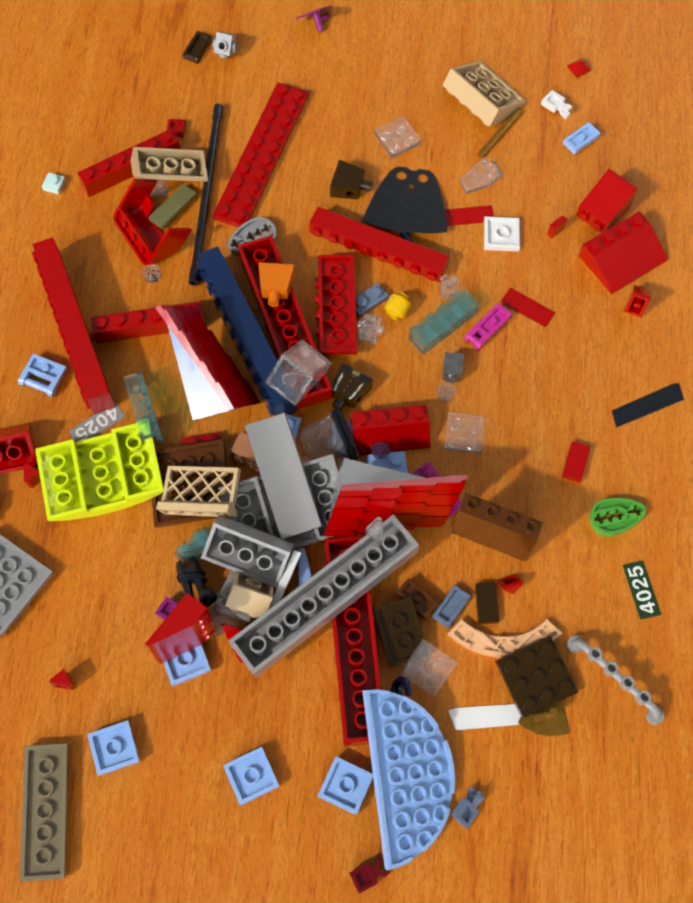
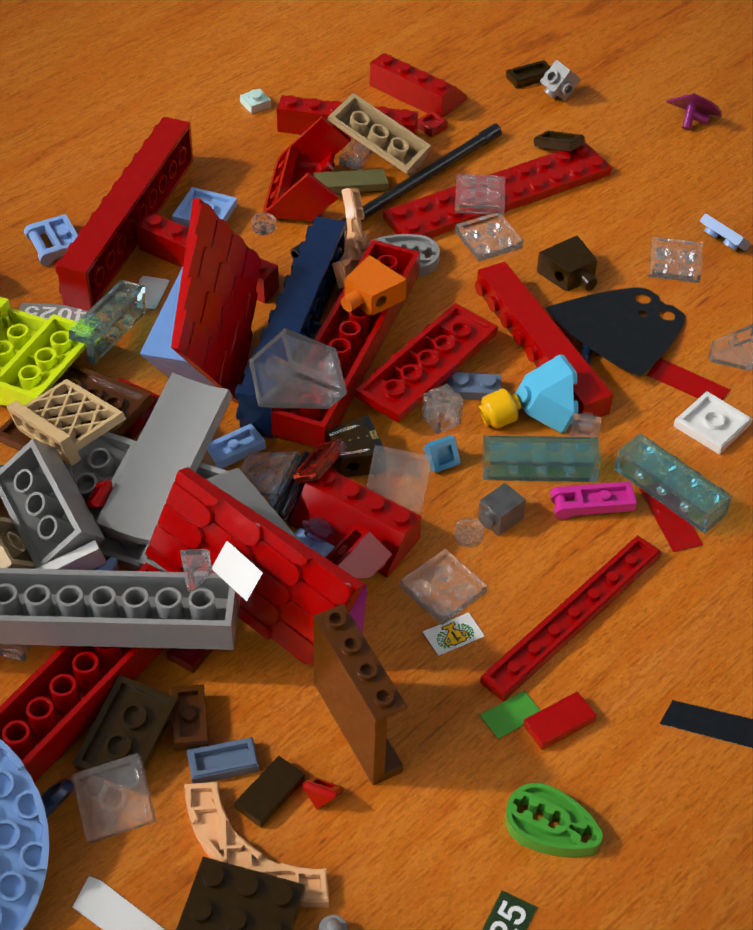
camera: 40 degrees right, 20 degrees down
(110, 289) = (221, 204): none -> light blue plate
(133, 364) = (153, 290): none -> white sticker
(141, 105) = (414, 86): none -> red slope
(234, 266) = (356, 238): none -> light nougat tile
(259, 166) = (480, 194): none -> clear plate
(264, 92) = (559, 140): none -> dark brown tile
(267, 523) = (99, 495): none -> red slope
(287, 191) = (489, 236): none -> clear plate
(350, 412) = (319, 461): none -> clear red tile
(391, 388) = (400, 476): none -> clear plate
(394, 356) = (444, 453): none -> dark azure tile
(397, 514) = (237, 570): none -> white sticker
(414, 100) = (732, 238): none -> light blue plate
(416, 453) = (359, 553): none -> red slope
(418, 278) = (549, 395): none -> medium azure slope
(490, 454) = (453, 634): none -> white sticker
(517, 288) = (672, 483): none -> clear light blue brick
(533, 402) = (569, 618): none -> red tile
(551, 475) = (510, 714): none -> bright green sticker

